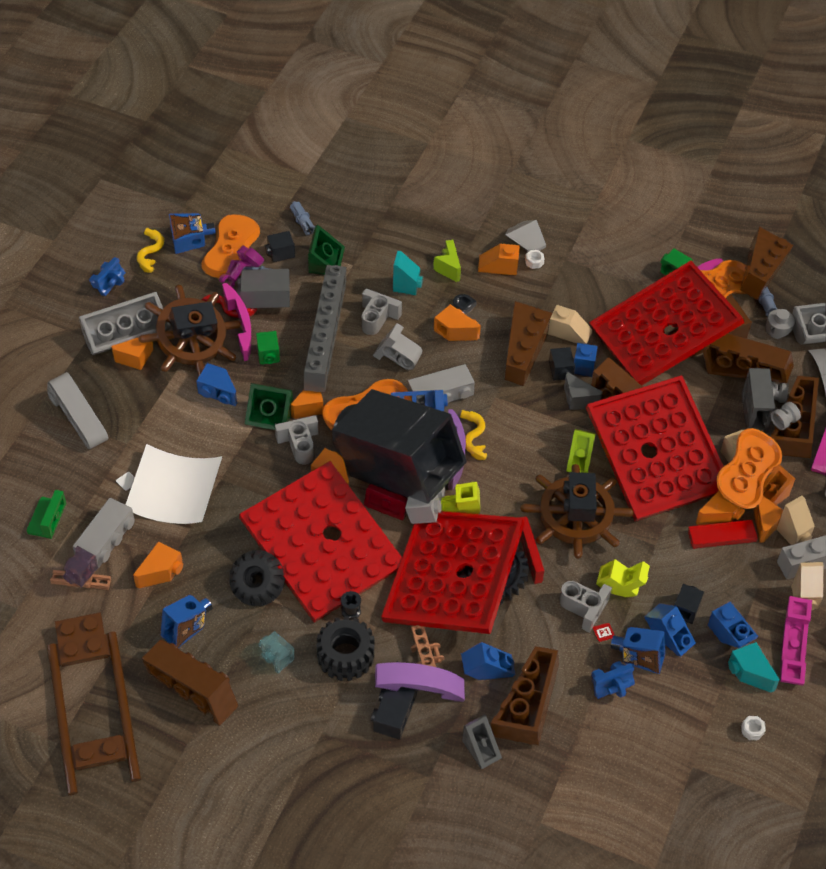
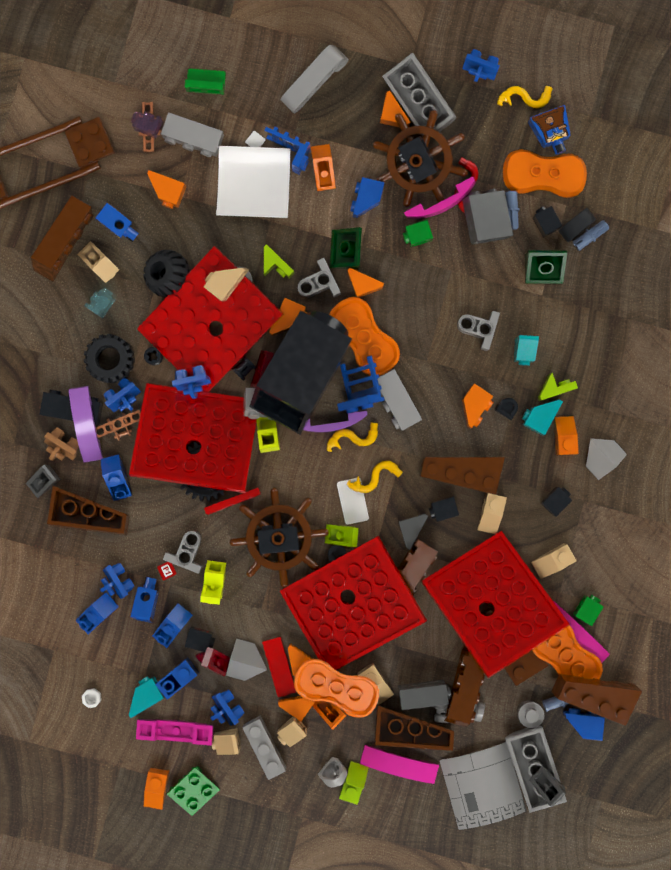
camera: 85 degrees right, 35 degrees up
(153, 429) = (302, 150): none -> blue plate
(174, 417) = (323, 167): none -> orange slope
(227, 646) = (98, 262): none -> tan slope
(248, 257) = (516, 197): magenta piece -> none
(267, 476) = (271, 260): none -> lime slope
(284, 501) = (224, 282): none -> tan slope
(291, 219) = (577, 225): none -> black tyre
(325, 329) = (442, 283): dark grey brick -> none
(382, 519) = (244, 368): none -> black bush
(386, 637) = (123, 398): none -> blue hips
(387, 572) = (192, 384): none -> blue hips
(399, 348) = (434, 354): light grey tile -> none
(442, 719) = (60, 448): none -> medium nougat hips
(477, 275) = (541, 416): none -> teal slope
(528, 436) = (389, 465): none -> yellow animal
(534, 259) = (575, 470): white tile -> none
(543, 445) = (352, 503): none -> white sticker
(564, 275) = (556, 500): none -> black brick
(585, 359) = (451, 530): blue brick -> none
(599, 468) = (335, 552): none -> black wheel
(622, 280) = (553, 561): none -> tan slope
(651, 705) = (96, 613): none -> blue slope
(713, 588) = (214, 661): none -> dark red tile
(715, 563) = (245, 661): none -> light grey slope
(769, 589) = (231, 715): none -> blue hips
(783, 417) = (401, 723): light grey wheel -> none
(792, 281) = (586, 724): none -> blue slope

